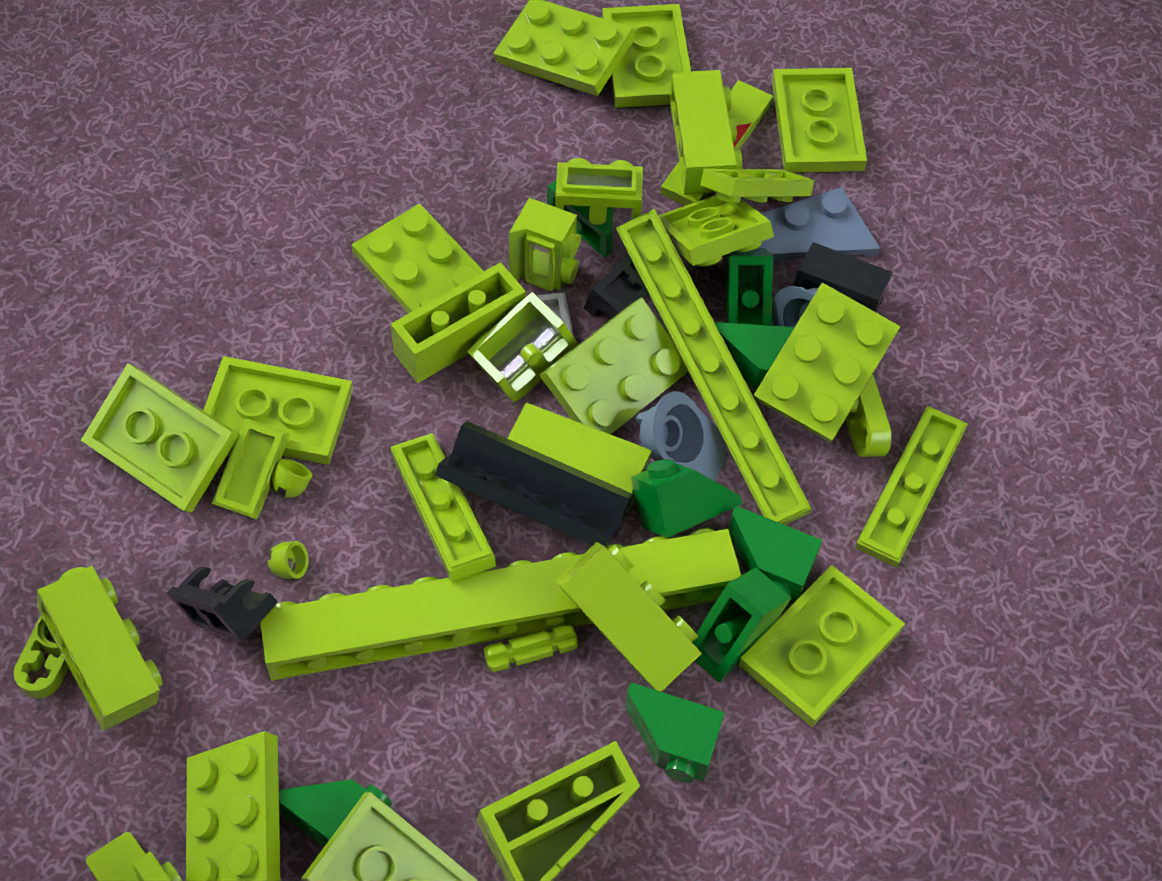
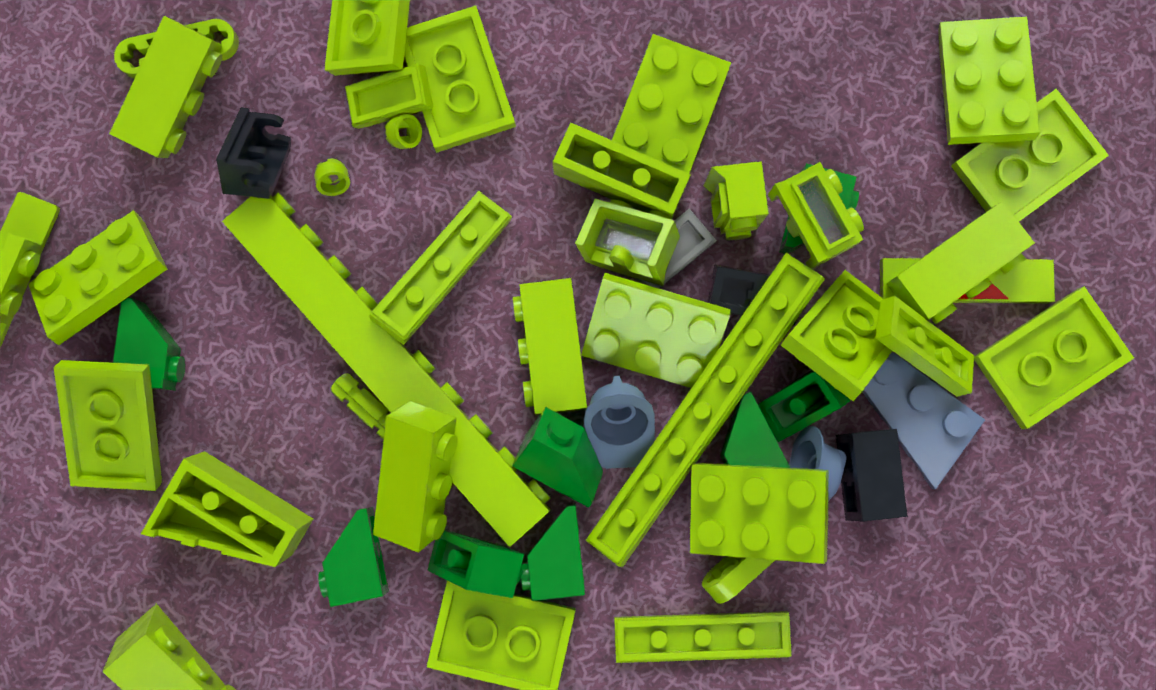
camera: 65 degrees right, 25 degrees up
(535, 485) = (501, 332): black fence -> none

